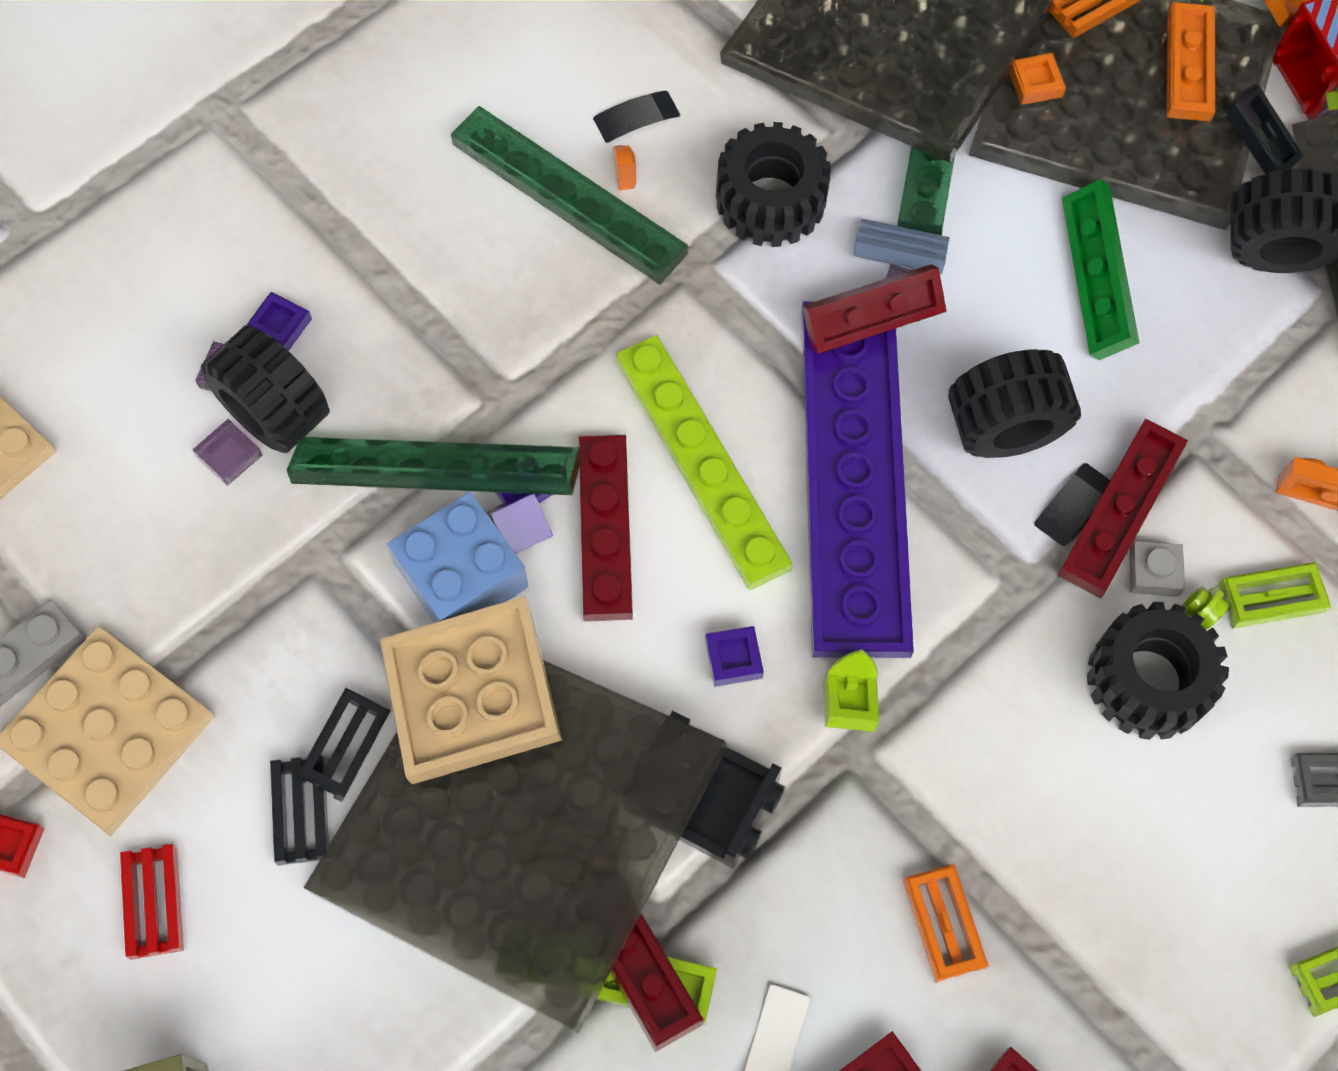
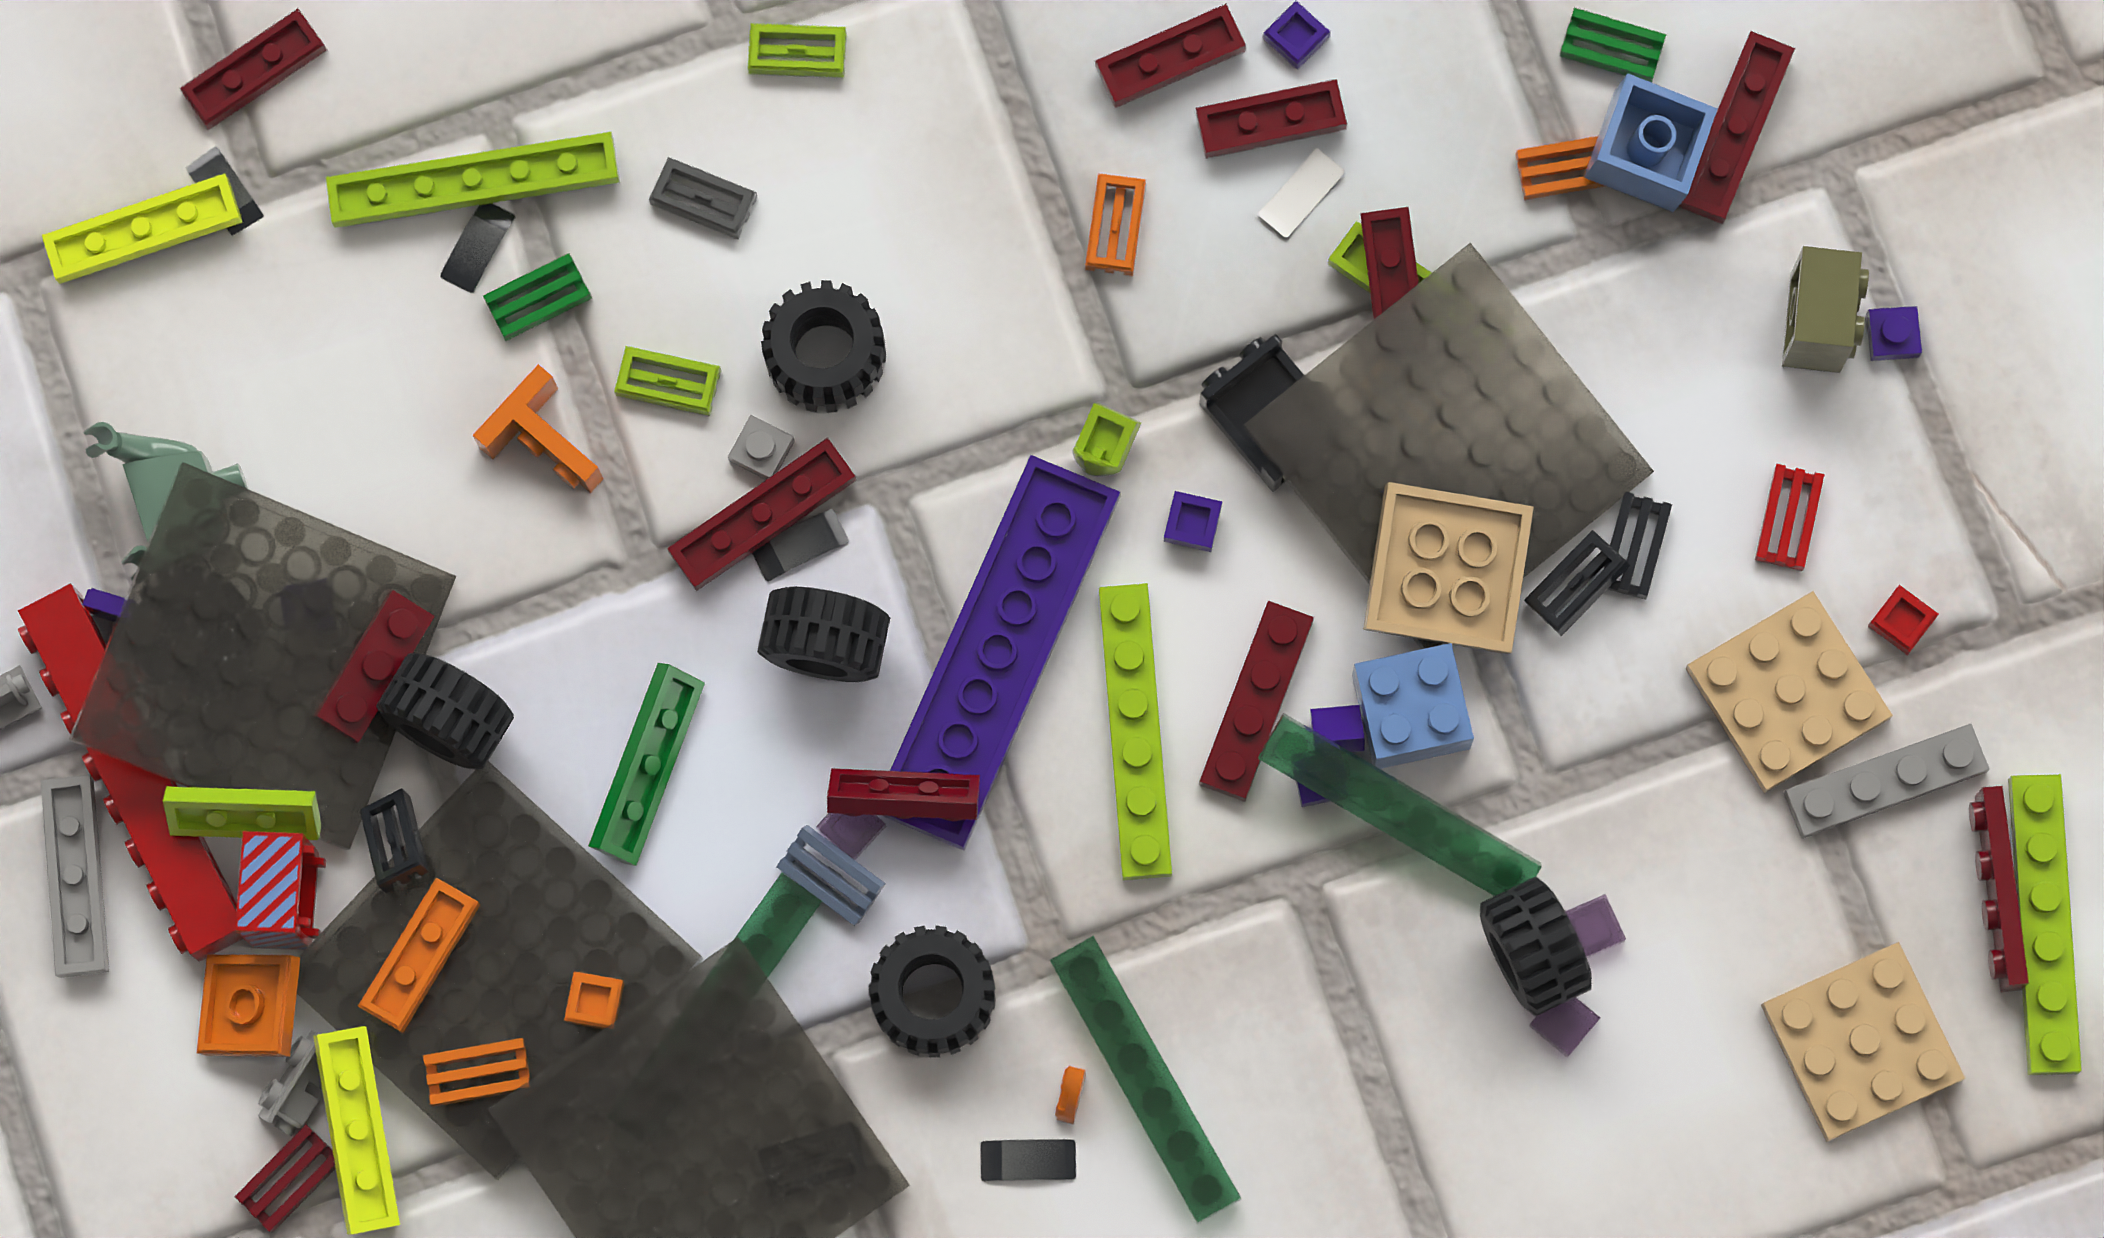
camera: 150 degrees left, 10 degrees up
(281, 319) = (1495, 1056): dark purple tile -> none
(1207, 604) = (744, 389): lime plate -> none

